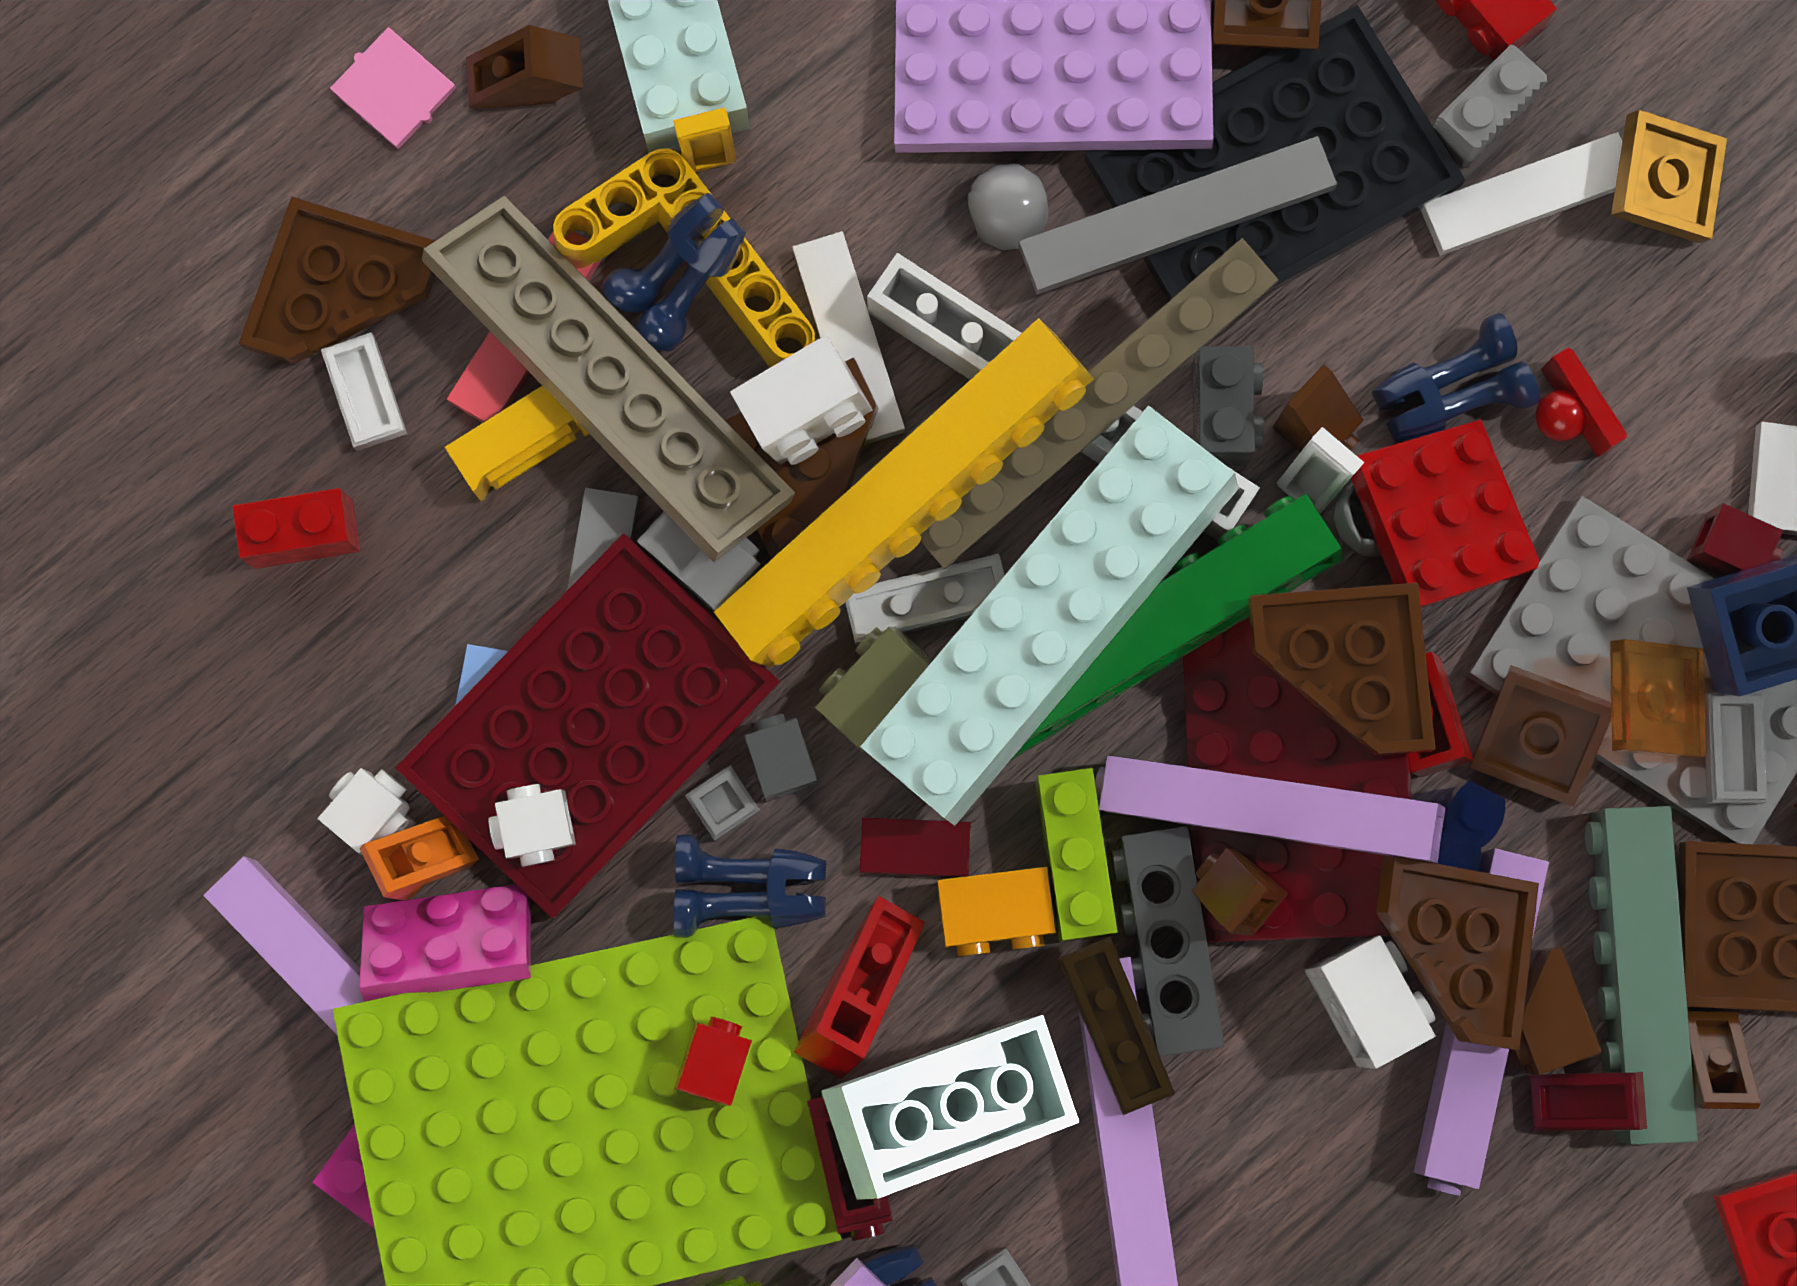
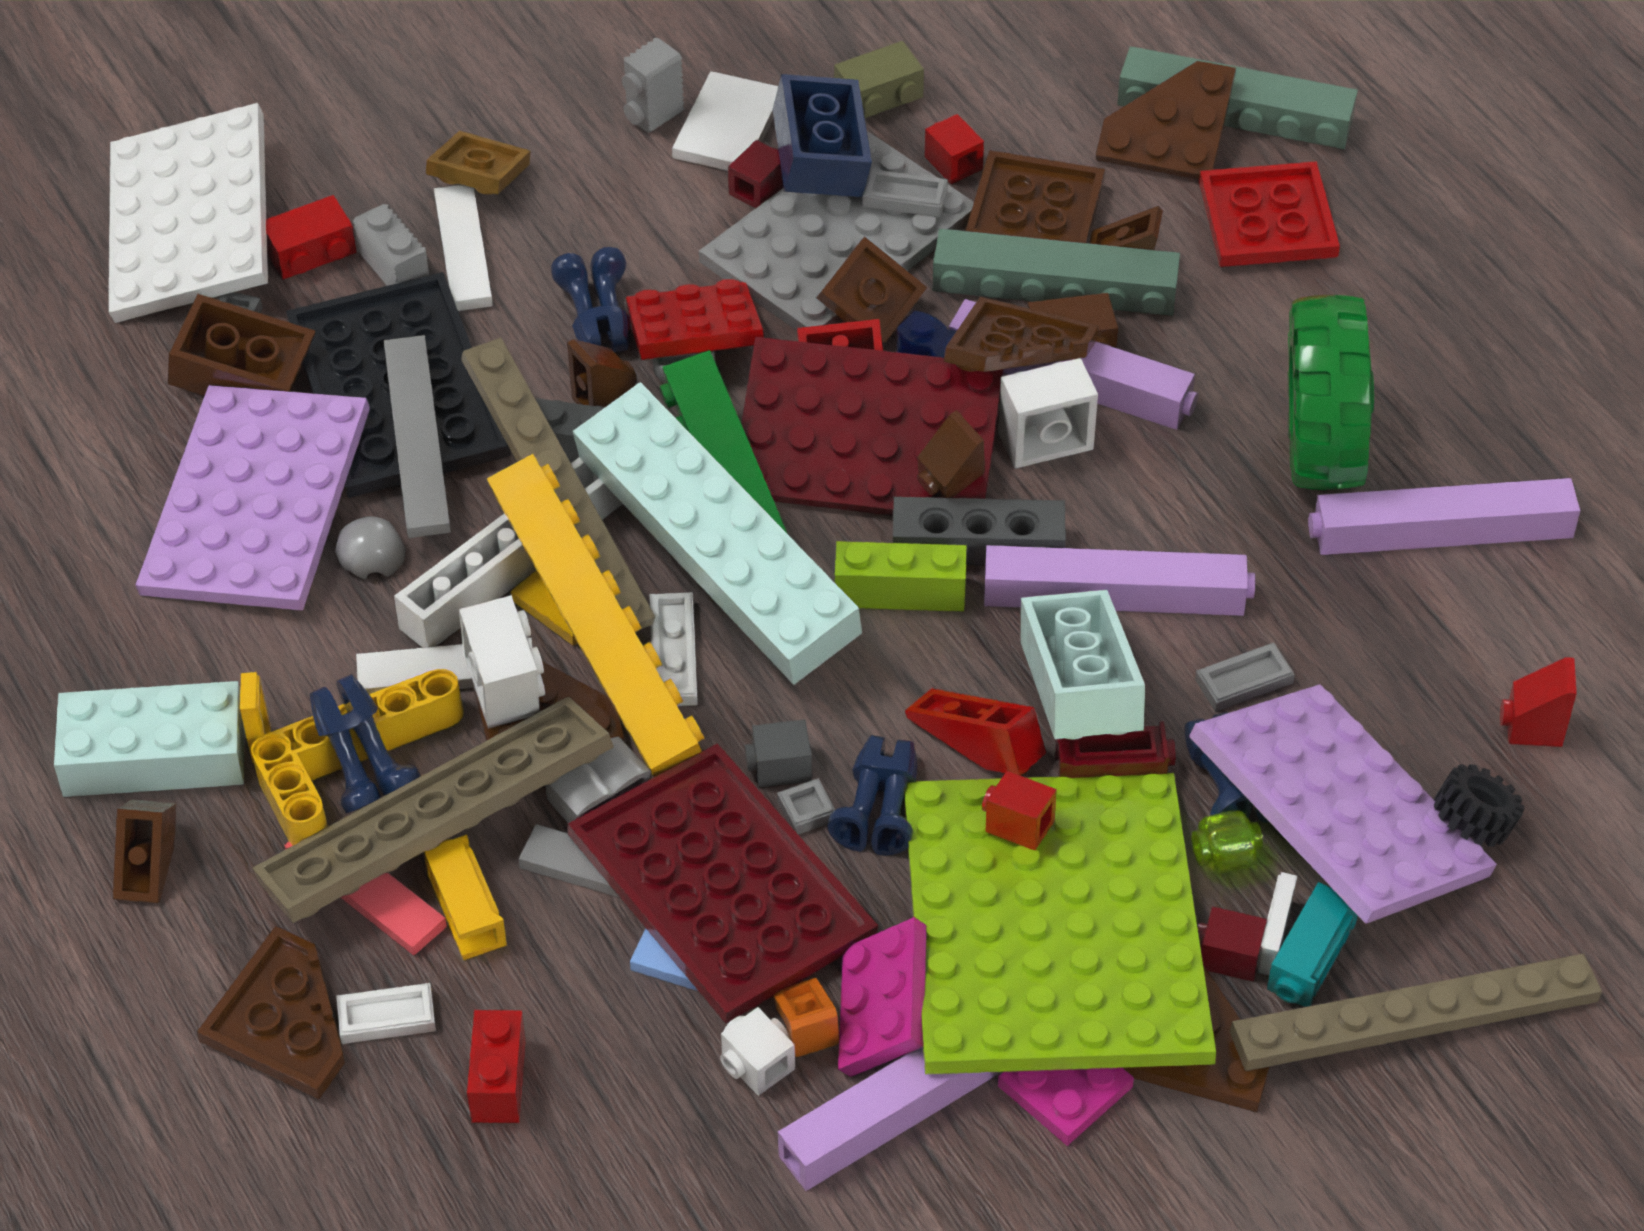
camera: 80 degrees left, 30 degrees down
(393, 88) = (120, 957): bright pink piece -> none
(532, 824) = (799, 908): white brick -> none
(873, 685) = (739, 677): olive brick -> none
(915, 847) = (870, 685): dark red tile -> none
(996, 909) = (930, 634): light orange brick -> none
(1116, 1026) = (1037, 557): dark brown tile -> none
(1271, 808) = (893, 430): lavender brick -> none
(1320, 470) = (641, 363): white tile -> none
(1353, 658) = (794, 355): reddish brown plate -> none
(1576, 406) = (635, 237): red tile -> none
(1588, 1101) = (1141, 310): dark red tile -> none
(1658, 699) = (861, 217): clear orange tile -> none

